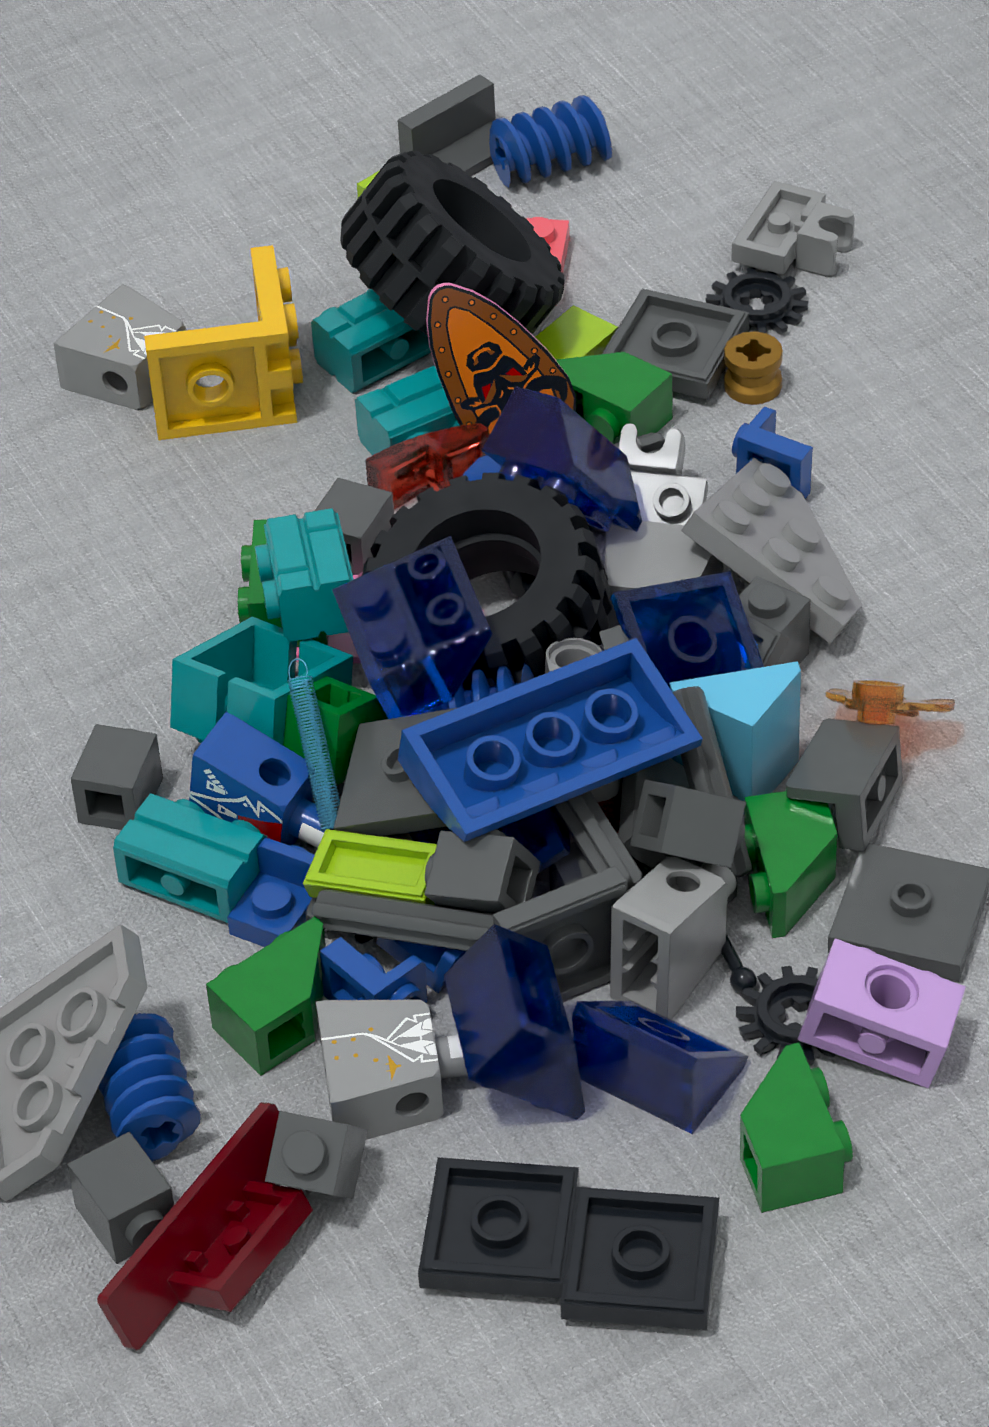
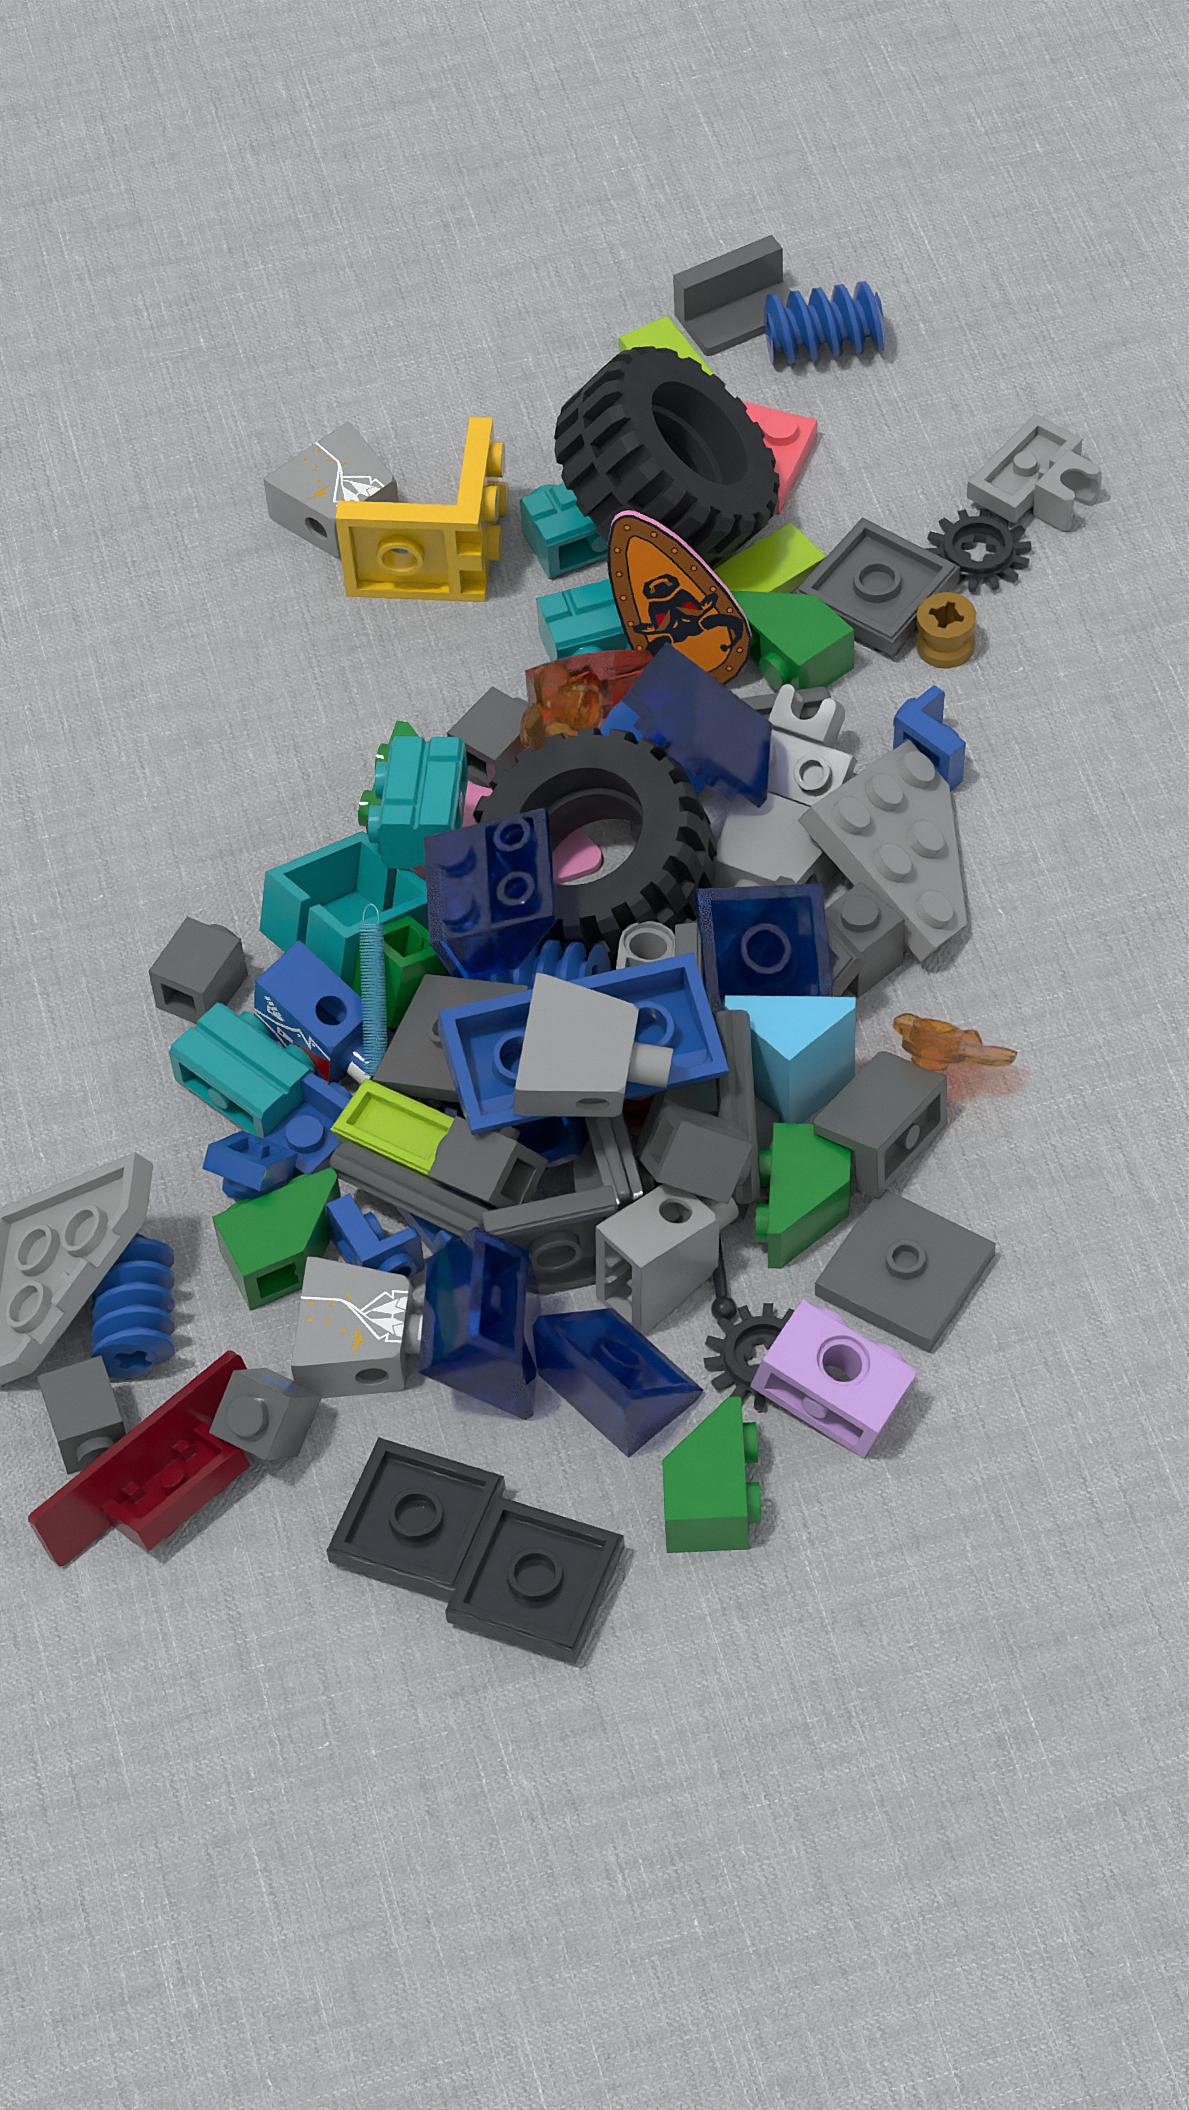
camera: 15 degrees right, 10 degrees up
(227, 935) = (250, 1165): none -> blue bracket
(407, 478) = (561, 706): none -> clear orange plate
(560, 738) = (582, 1053): none -> light grey torso

